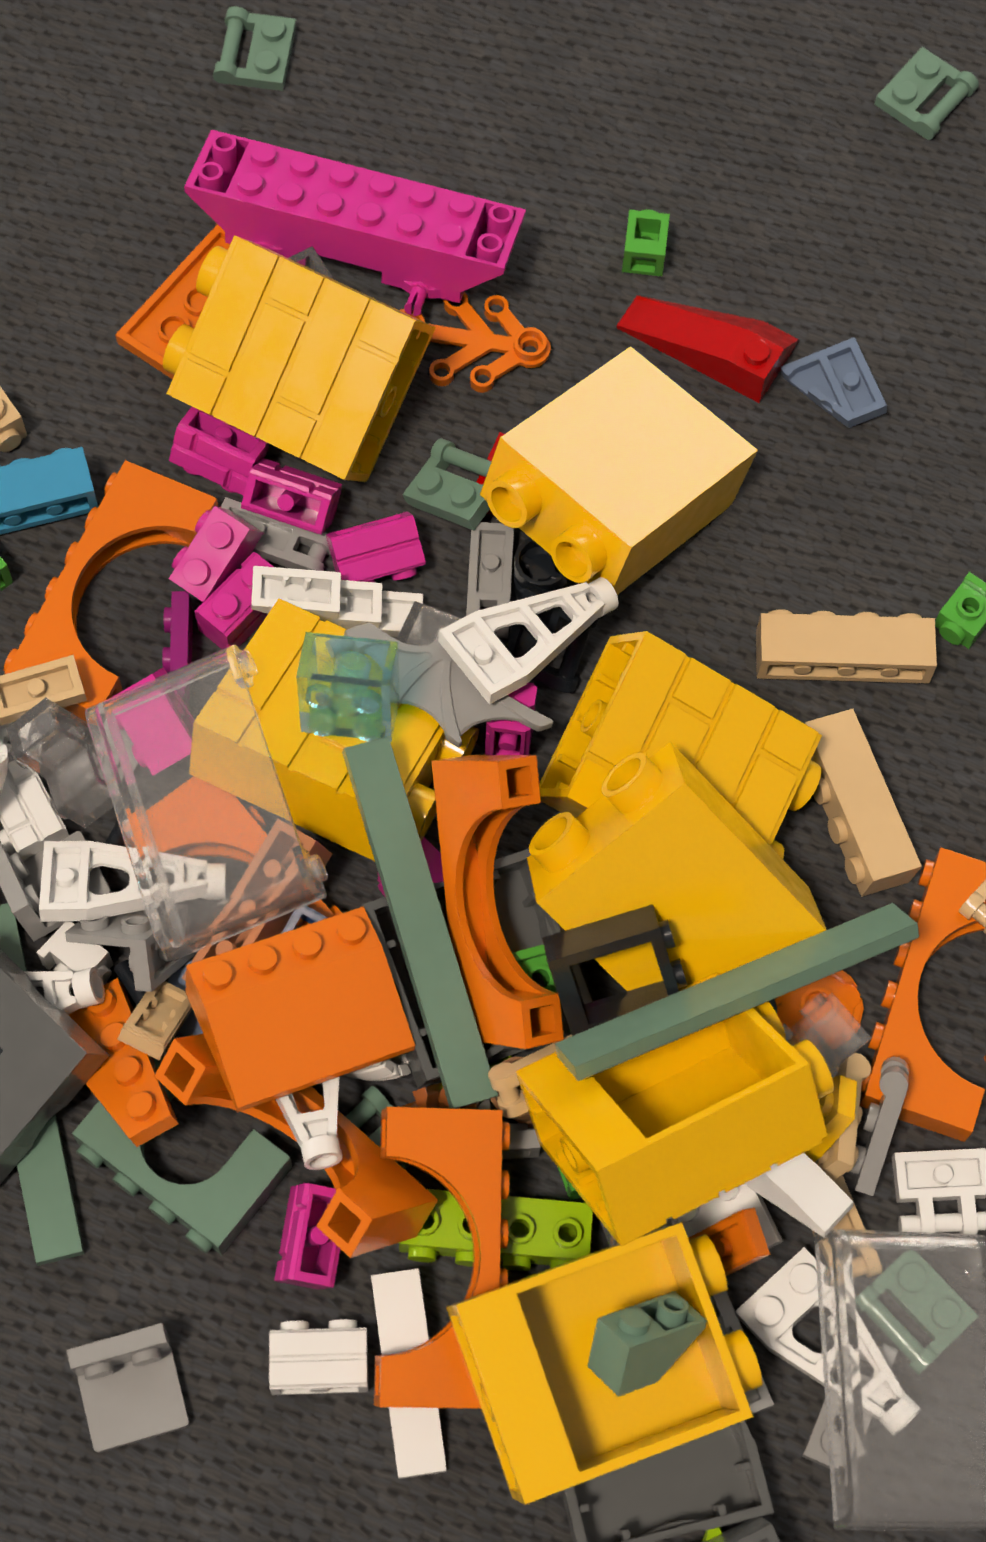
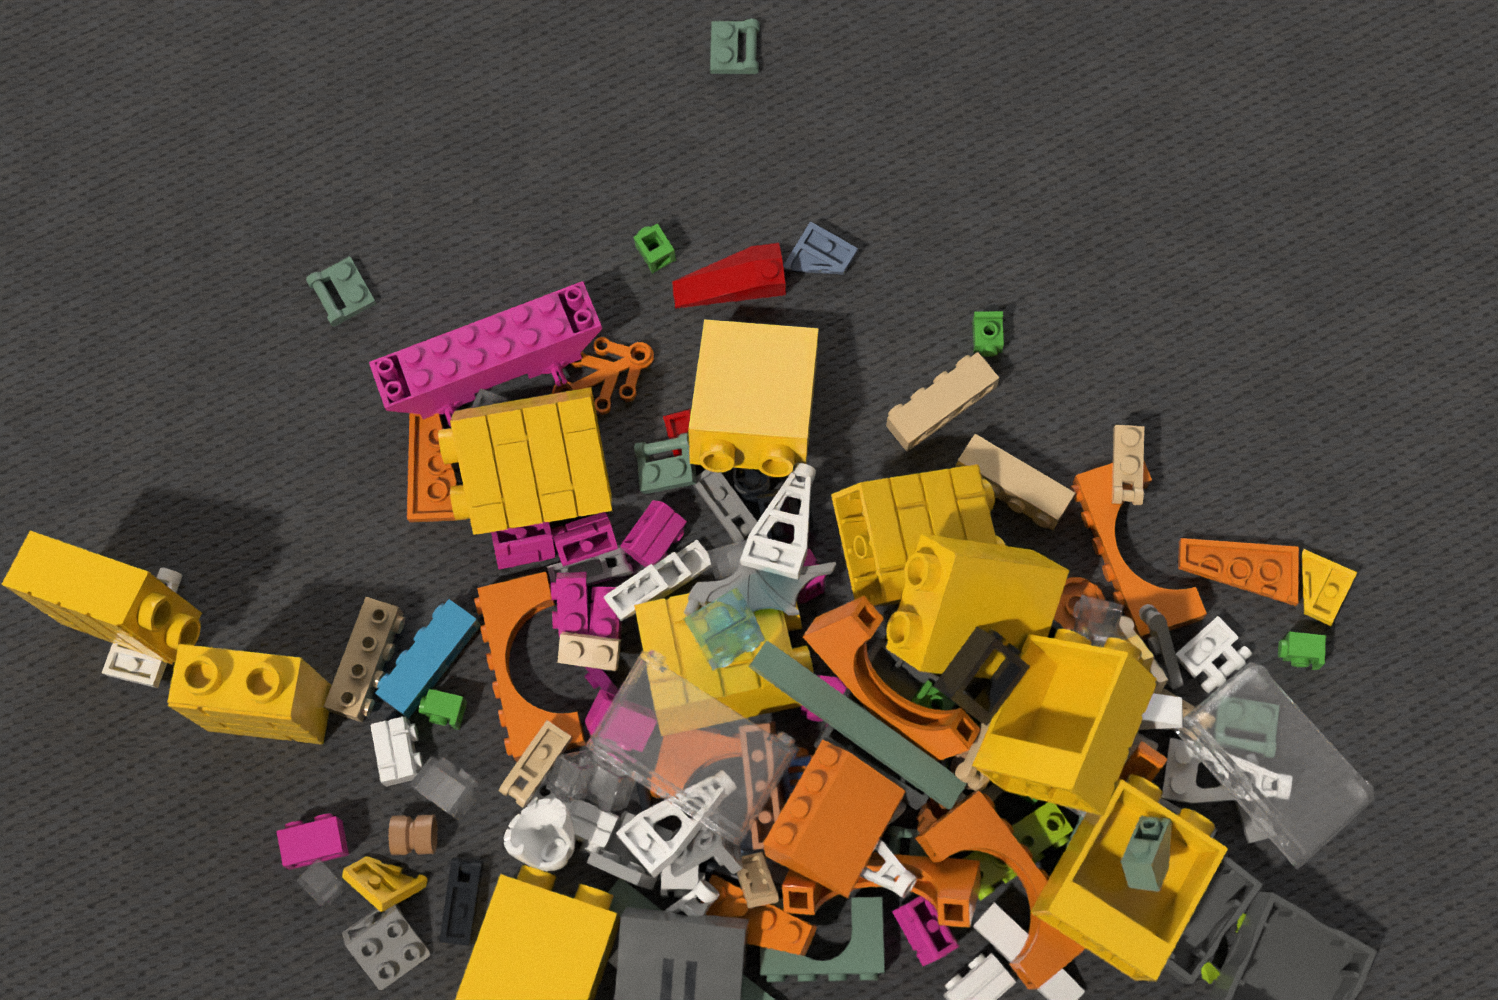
camera: 30 degrees left, 5 degrees up
(187, 616) = (589, 651): none -> tan plate
(735, 991) = (1051, 639): sand green tile -> none

